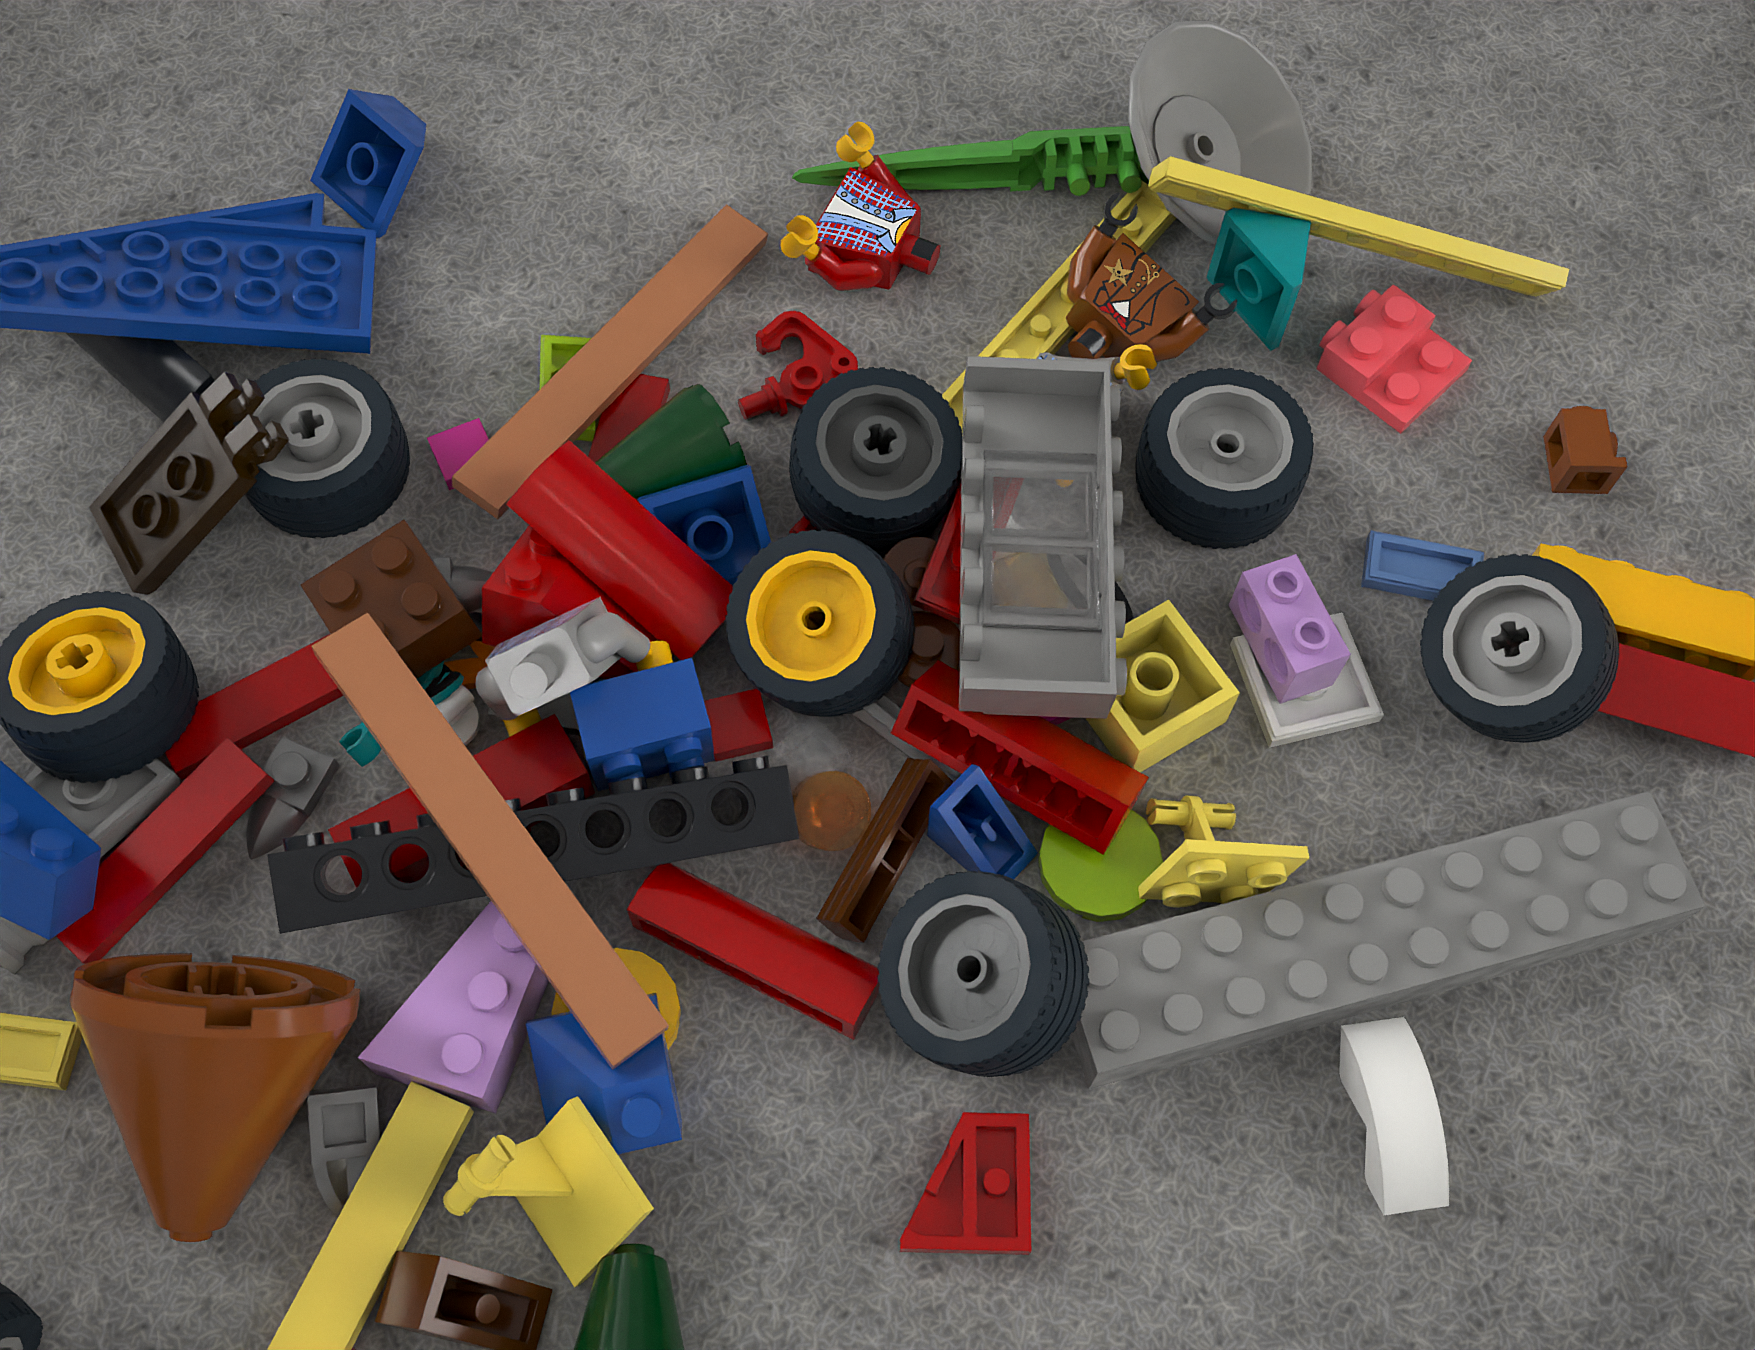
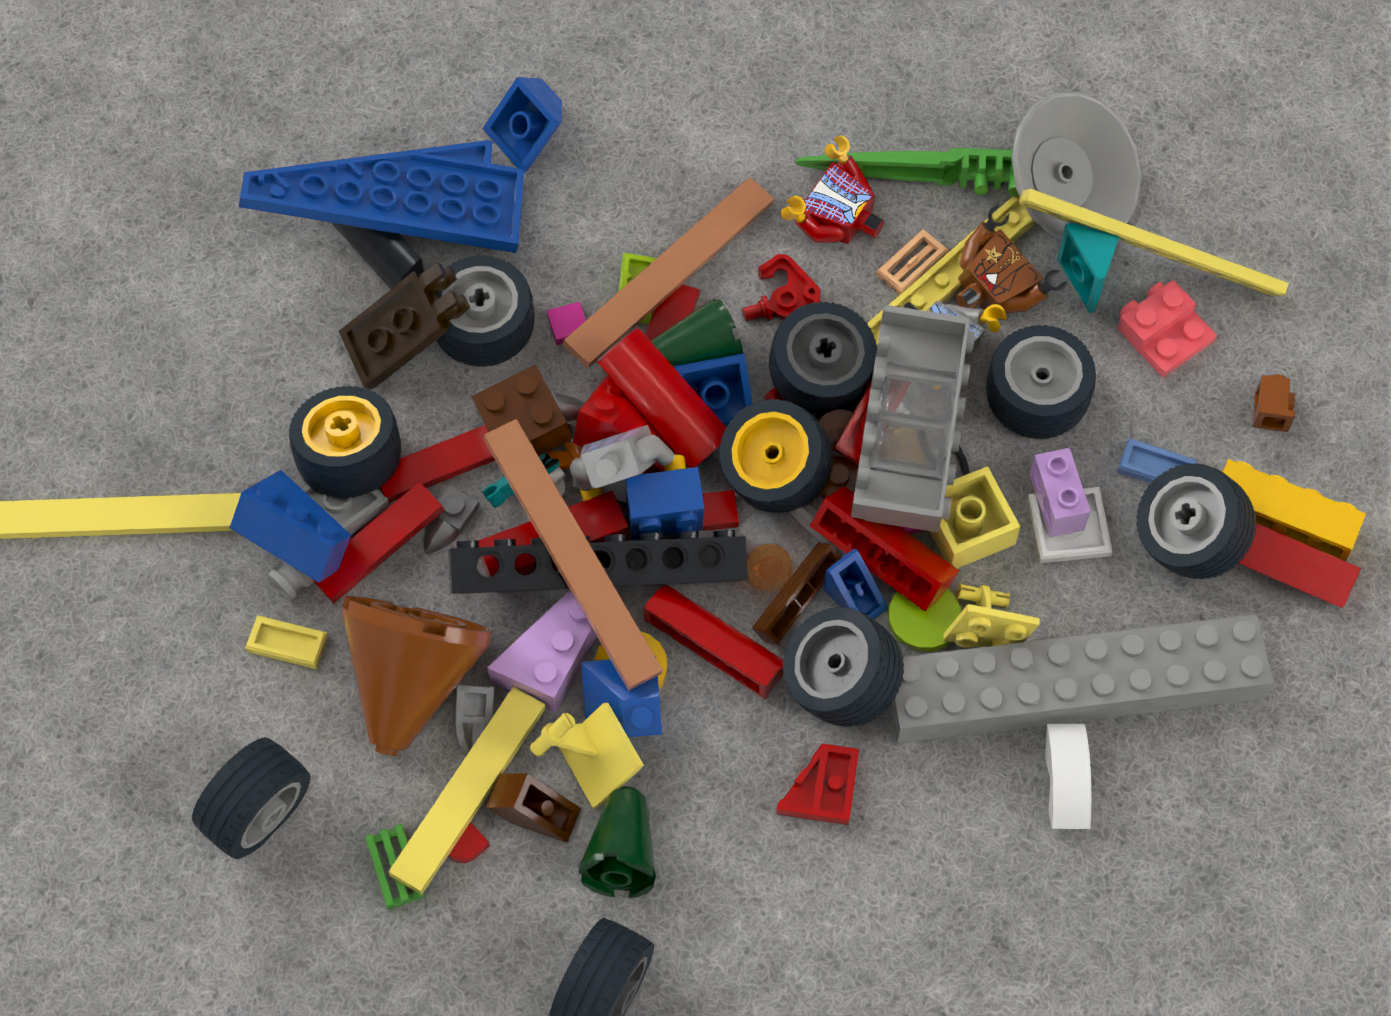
camera: 10 degrees right, 0 degrees up
(968, 334) = (894, 281): none -> light nougat tile

